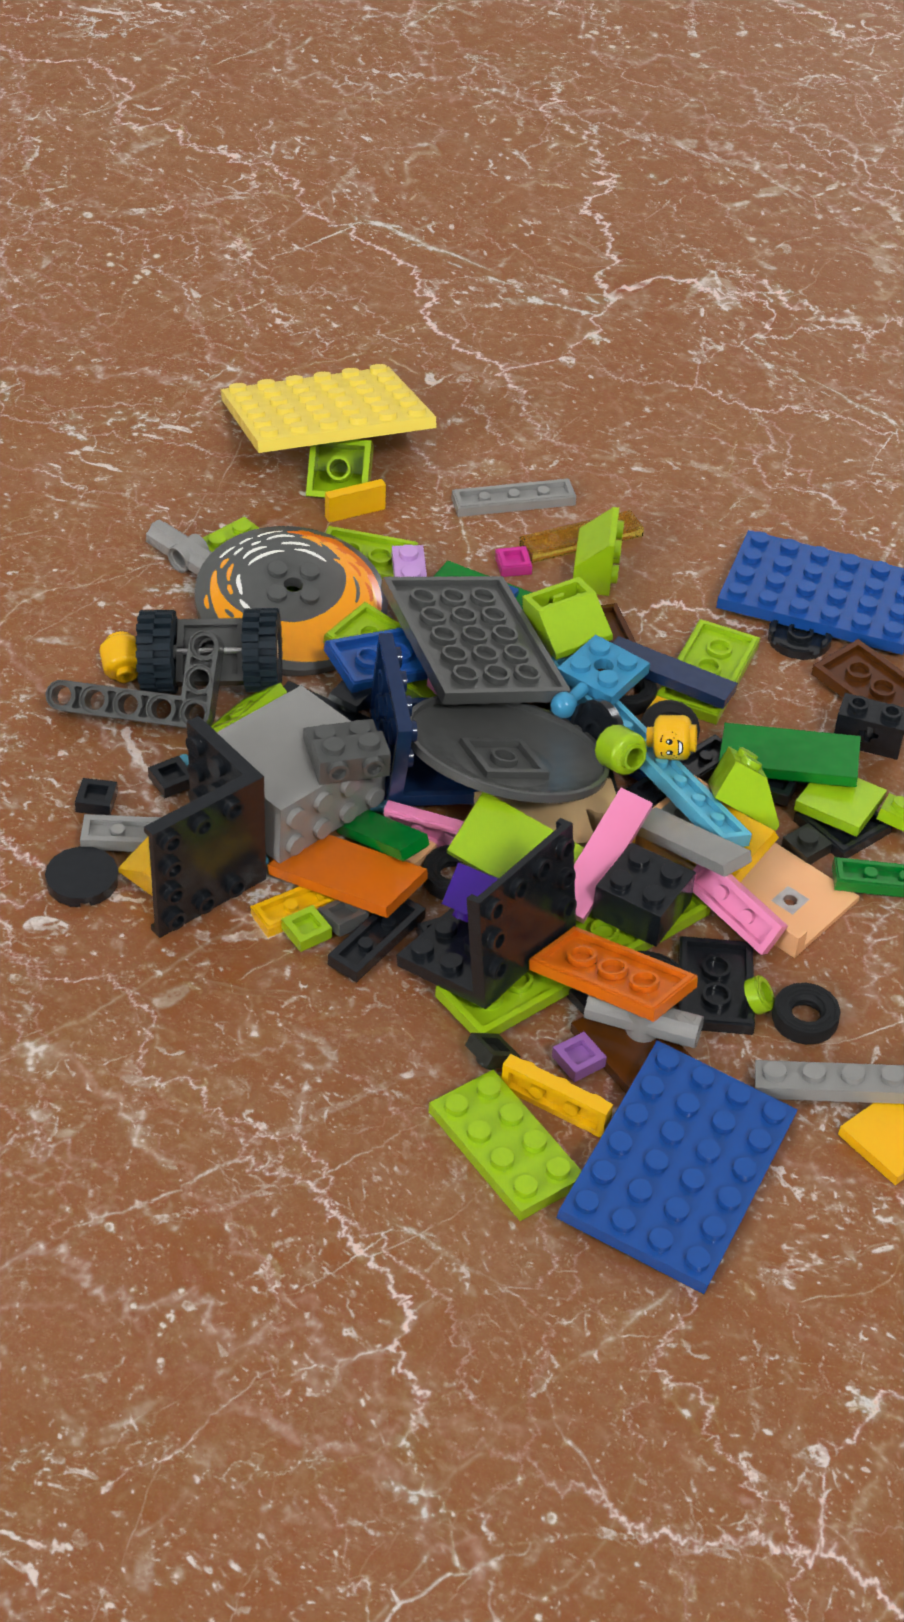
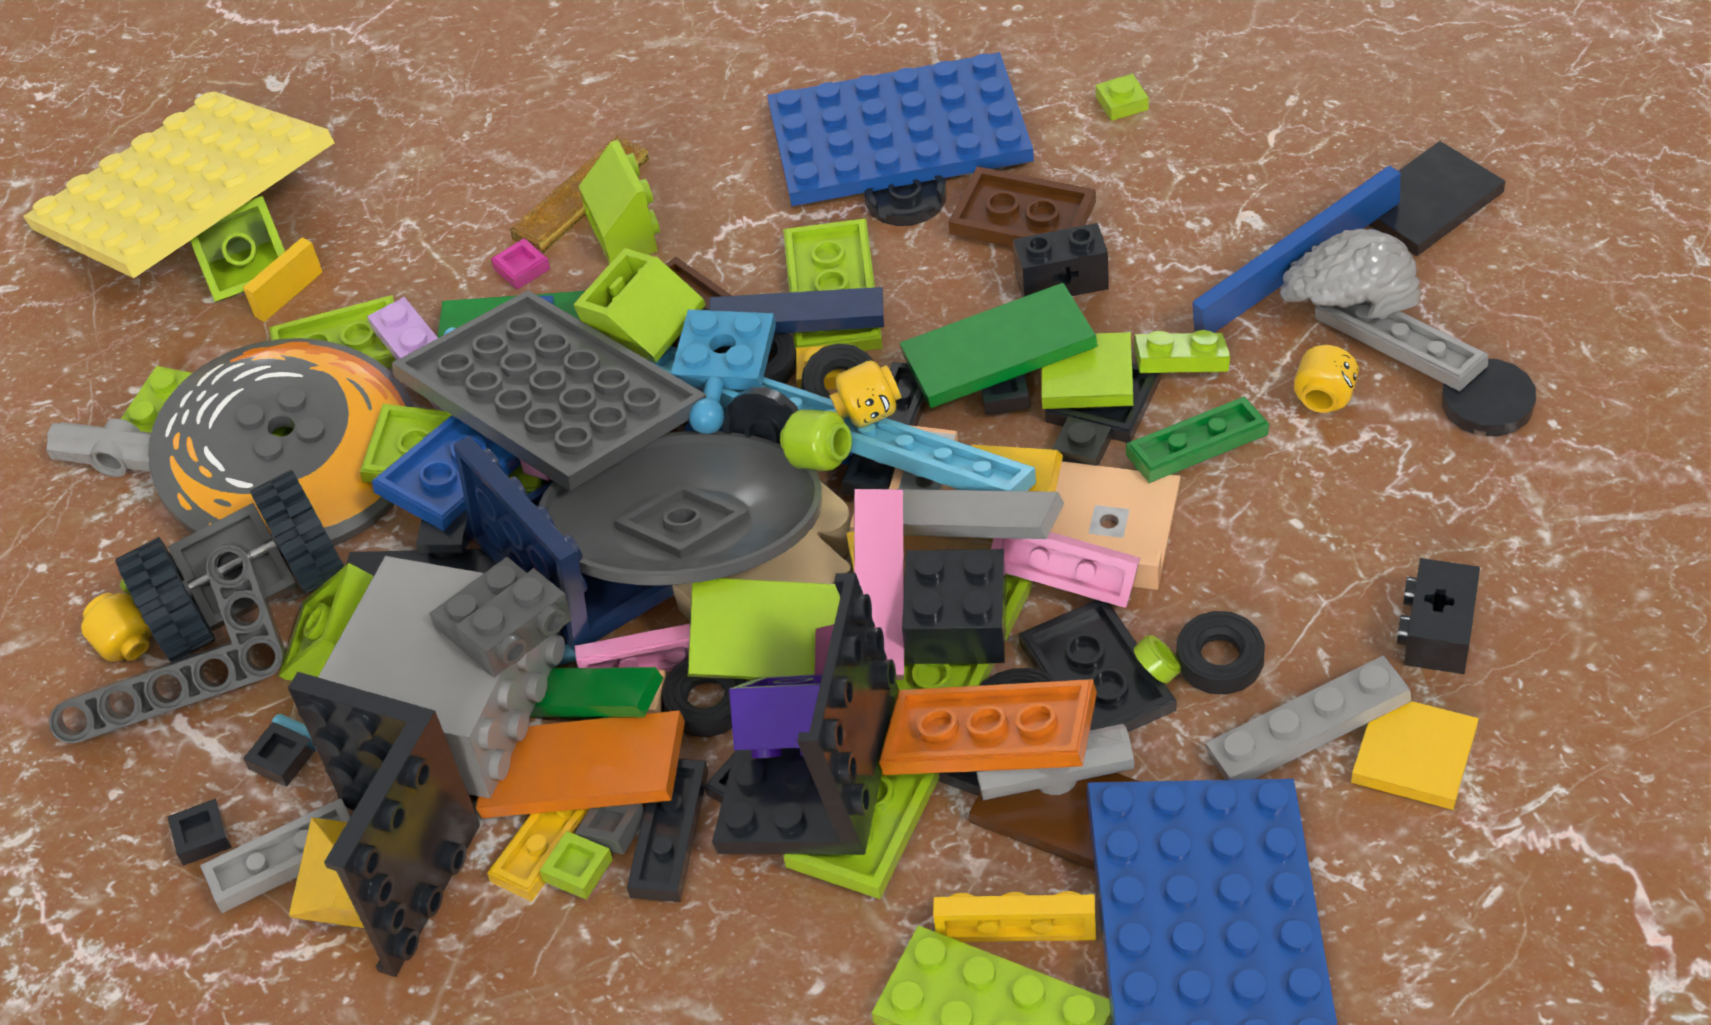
camera: 20 degrees left, 5 degrees up
(81, 876) = (246, 949): black tile -> none
(489, 1049) = (902, 902): pearl dark grey plate -> none
(513, 497) = (468, 184): light grey tile -> none
(579, 1056) = (1006, 852): medium lavender plate -> none
(744, 786) = (980, 411): lime slope -> none

